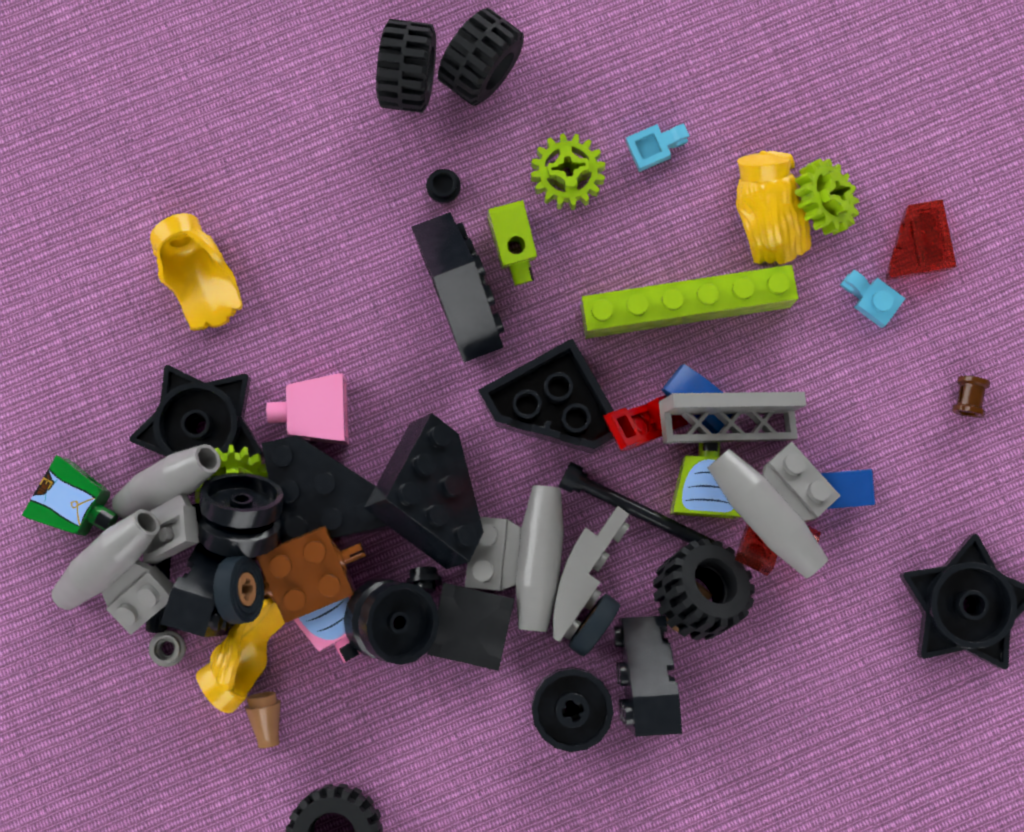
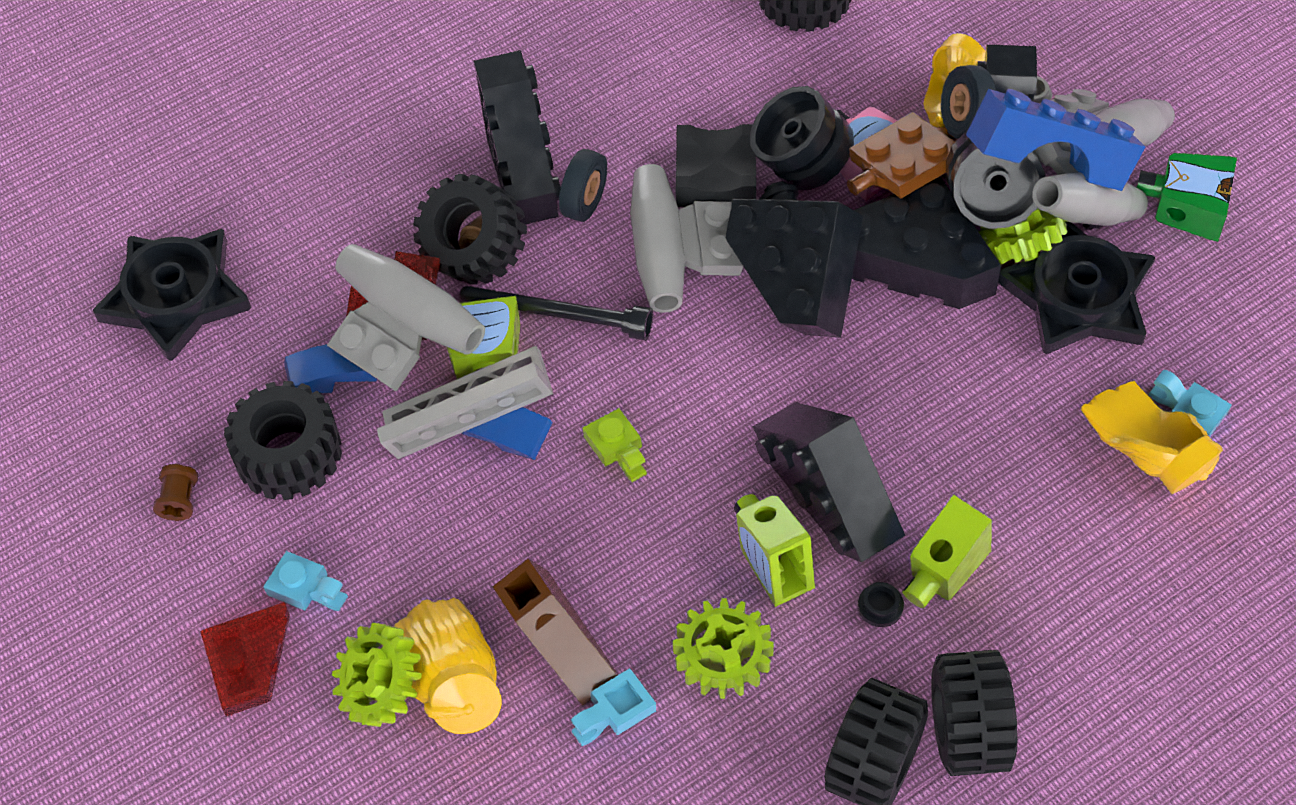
camera: 170 degrees right, 25 degrees down
(152, 299) = (1197, 400): none -> medium azure plate
(206, 500) = (1014, 126): none -> blue arch
(264, 717) = (910, 61): medium nougat cone -> none
(314, 410) = (954, 326): bright pink torso -> none
(383, 201) = (948, 552): none -> lime torso
(552, 401) = (677, 379): black brick -> none
(576, 585) = (607, 238): light grey slope -> none
(577, 730) = (592, 112): black wheel -> none
(613, 371) = (616, 440): none -> lime plate
(639, 425) = (577, 349): red slope -> none
(688, 301) = (537, 522): lime brick -> none
(690, 210) = (555, 628): none -> slope
(906, 404) = (279, 412): none -> black tyre

